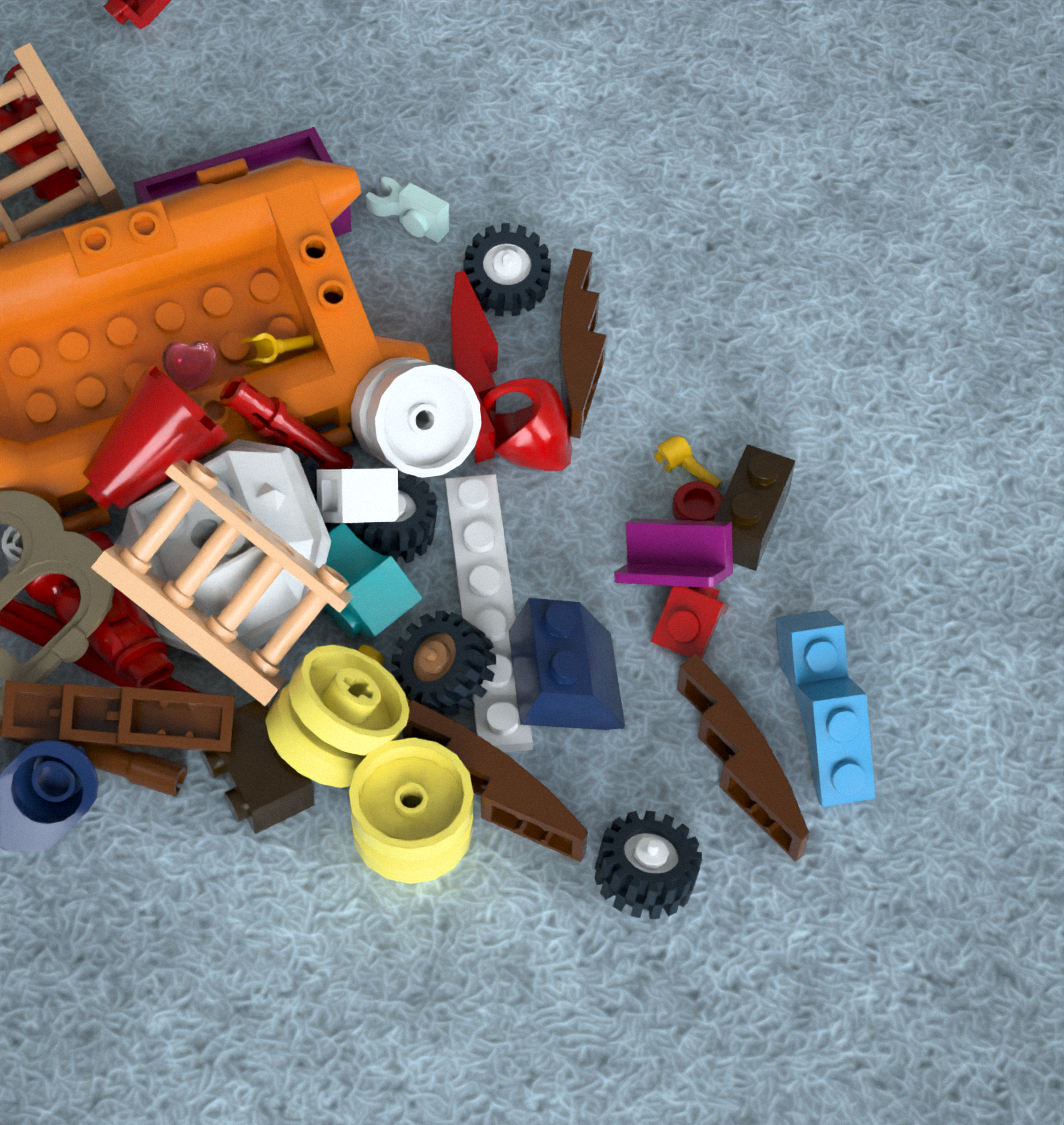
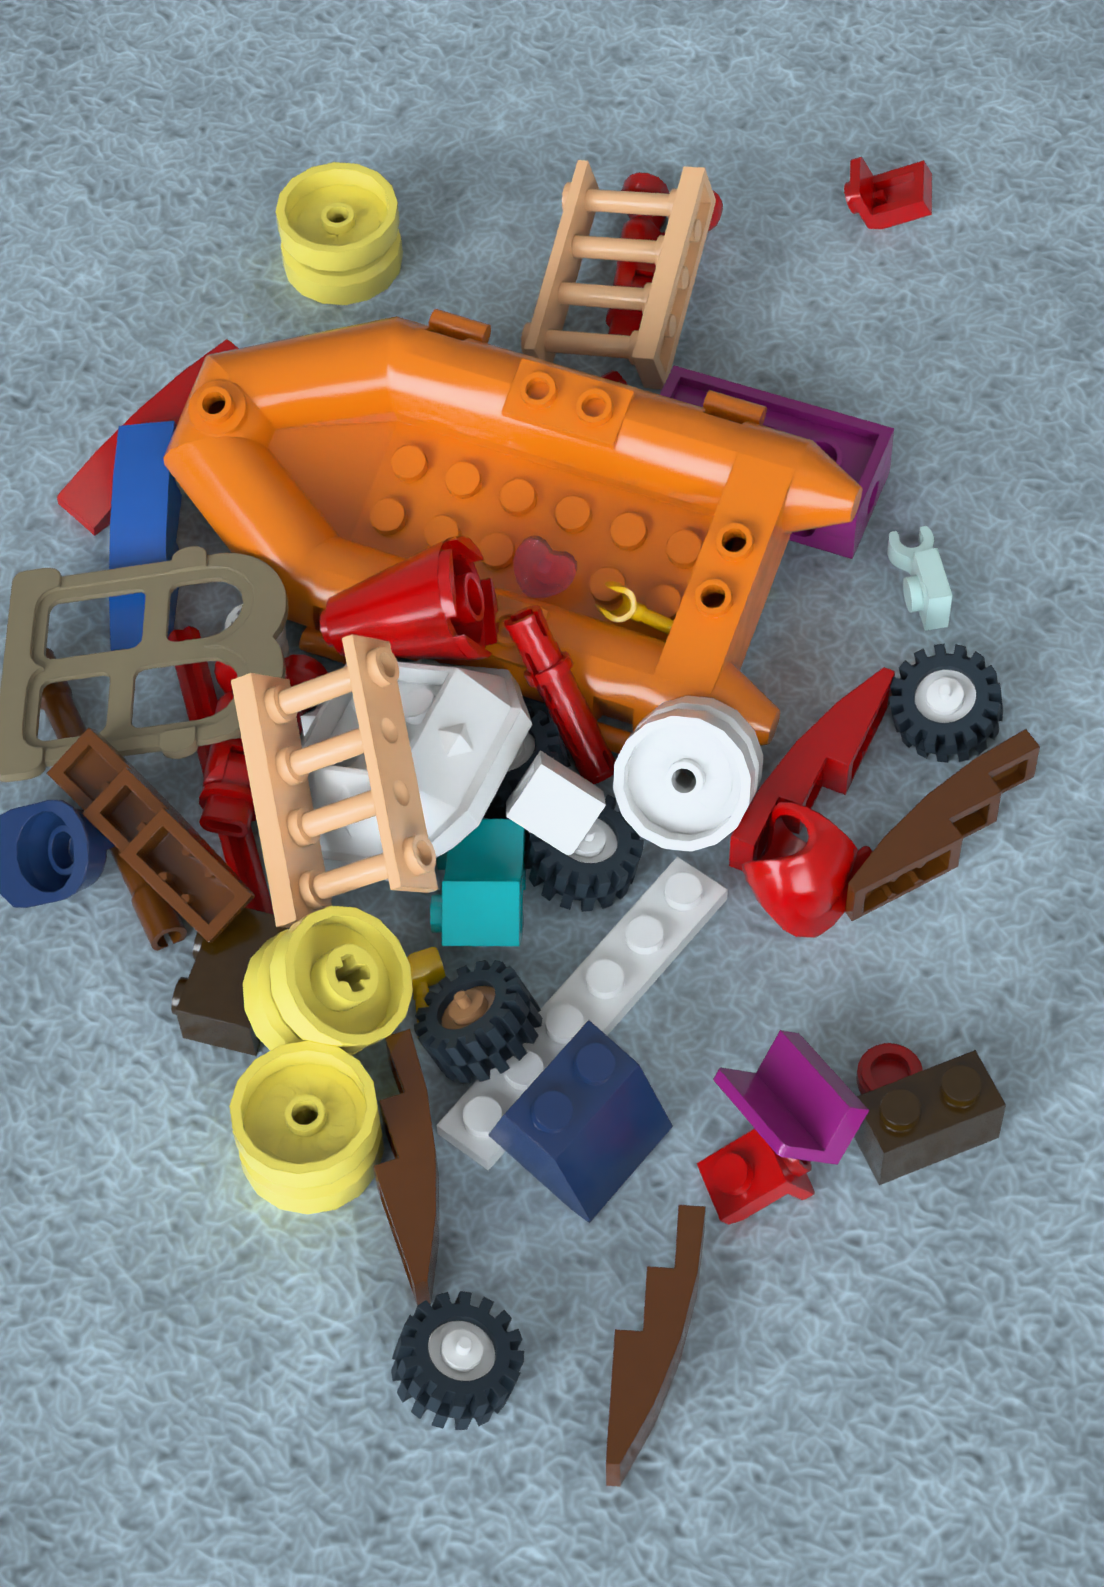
camera: 50 degrees right, 0 degrees up
(678, 452) = (921, 1008): yellow hand -> none
(830, 706) = (782, 1363): dark azure arch -> none

